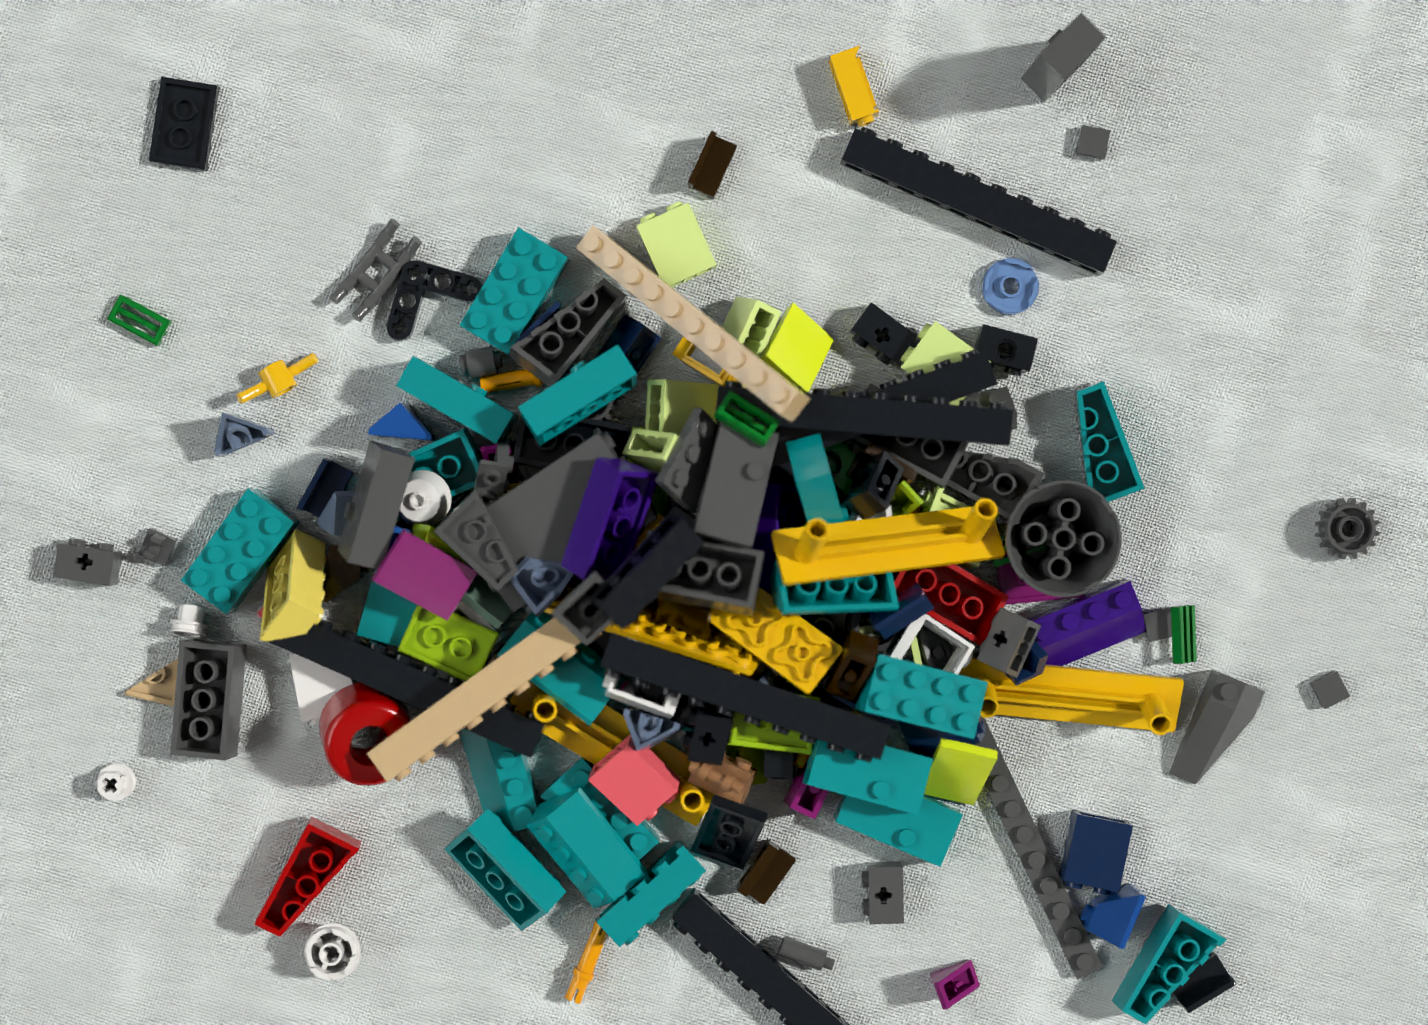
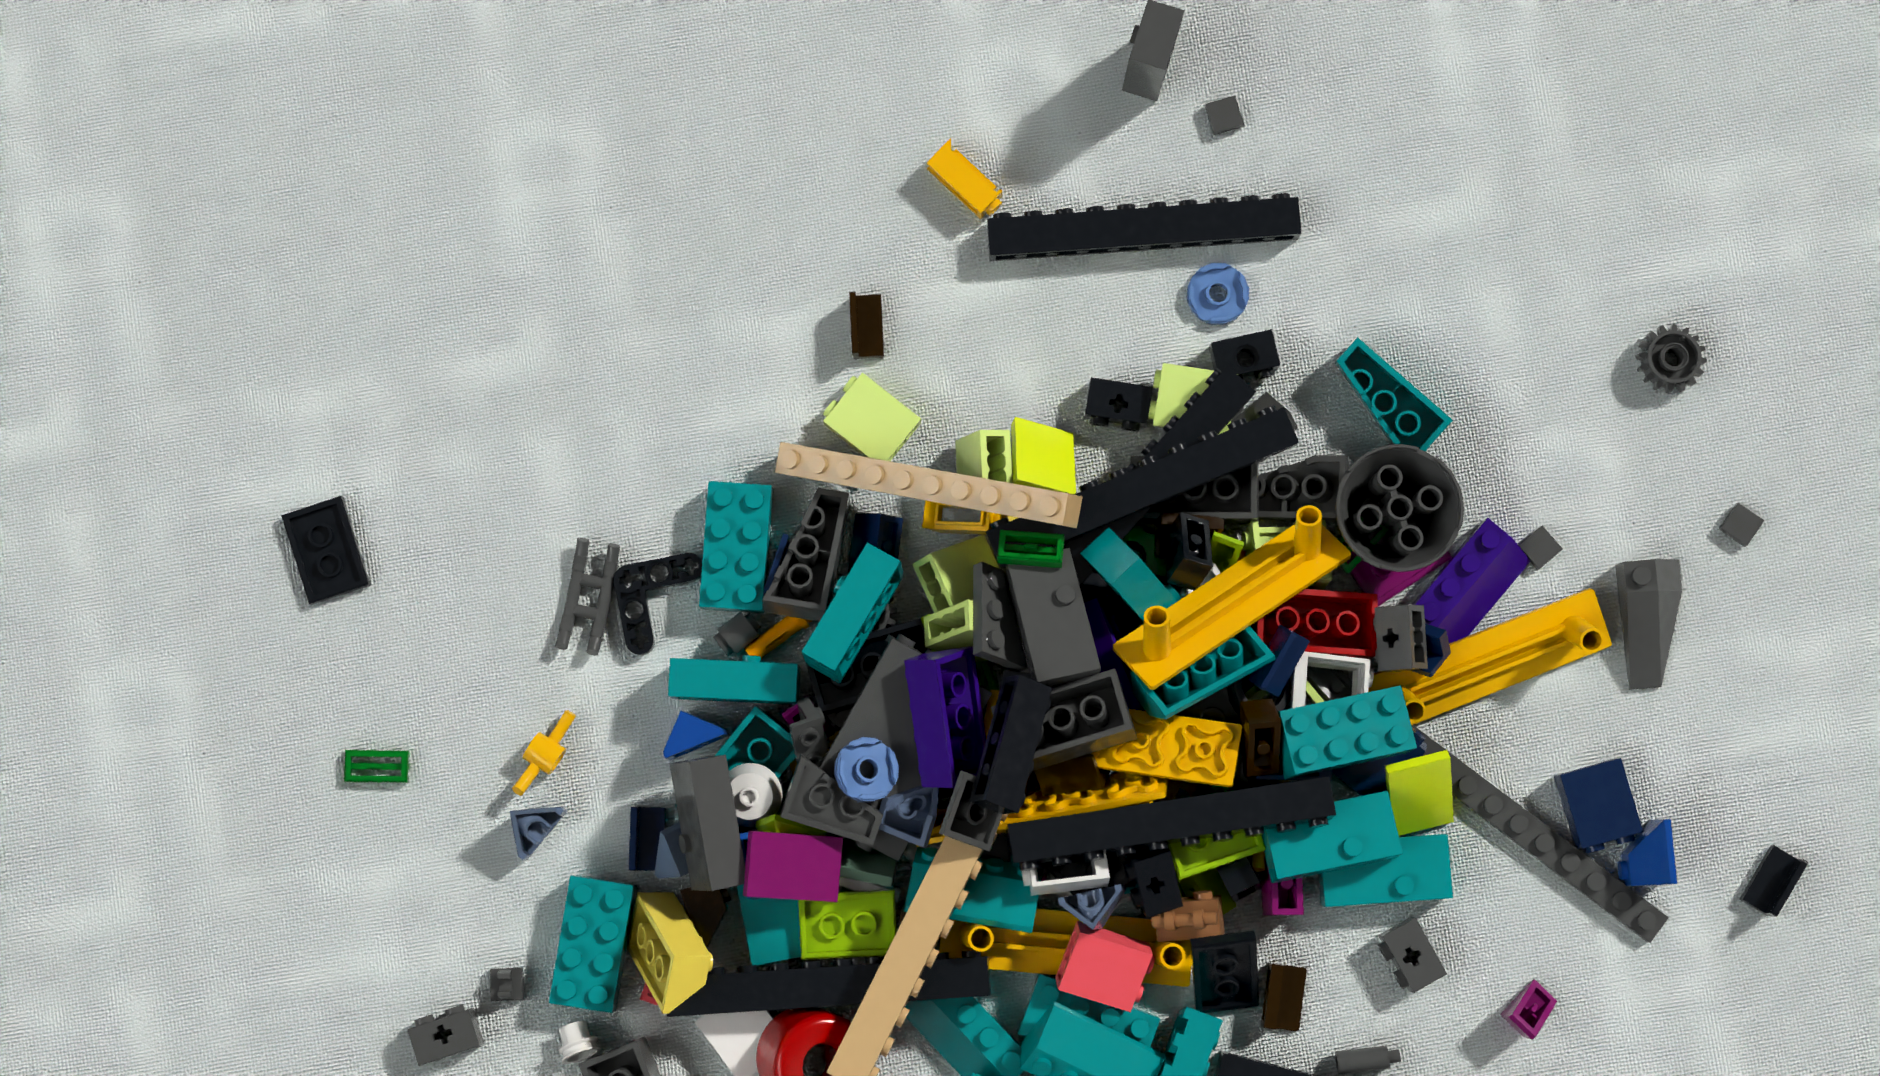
camera: 25 degrees left, 5 degrees down
(505, 528) = (848, 772): none -> medium blue tile
(1164, 963) = (1726, 879): teal wedge -> none
(1183, 634) = (1568, 544): green tile -> none

